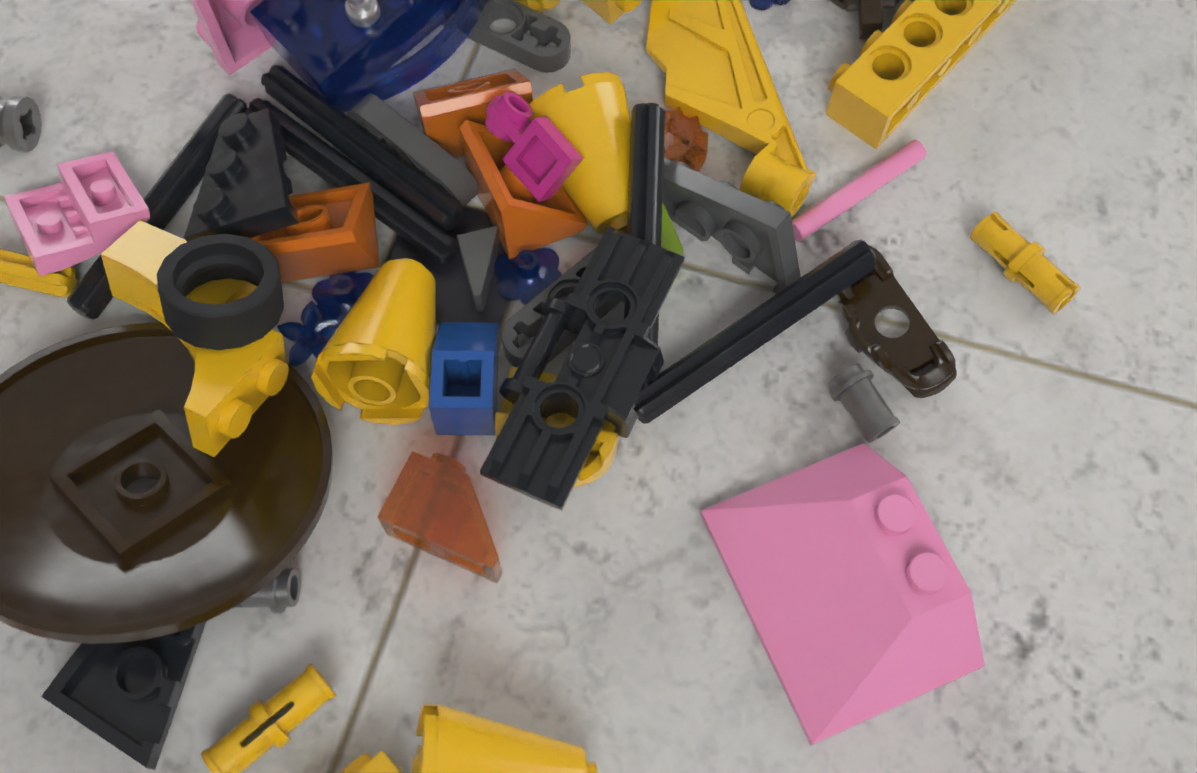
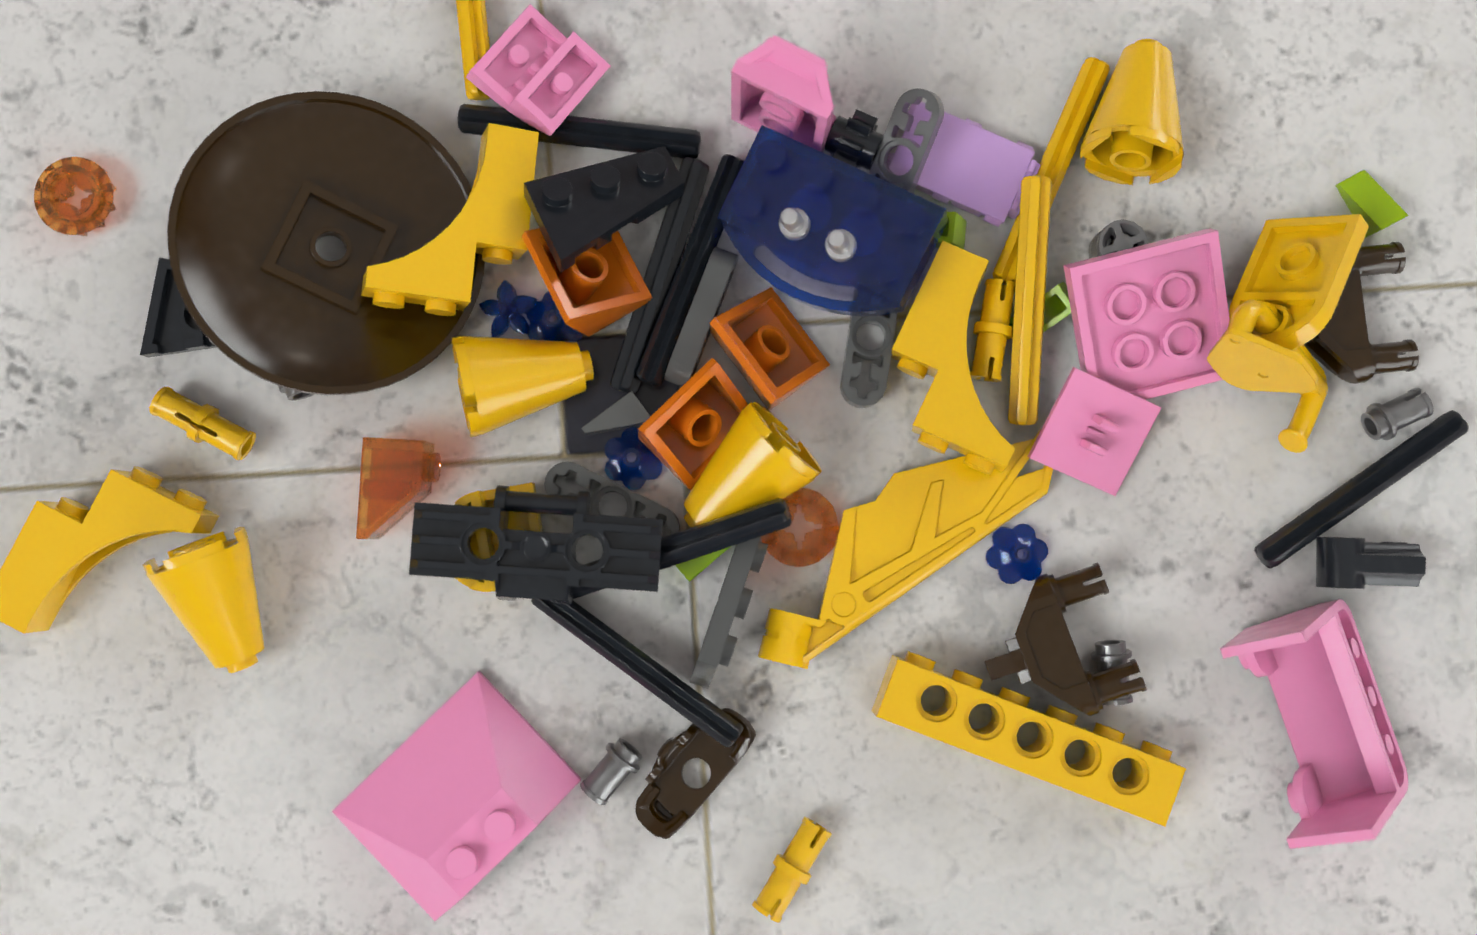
camera: 65 degrees right, 20 degrees up
(216, 259) = (502, 211): black tyre -> none
(464, 378) = (511, 449): blue slope -> none
(540, 151) = (708, 433): dark pink plate -> none
(857, 189) = (817, 707): bright pink bar -> none

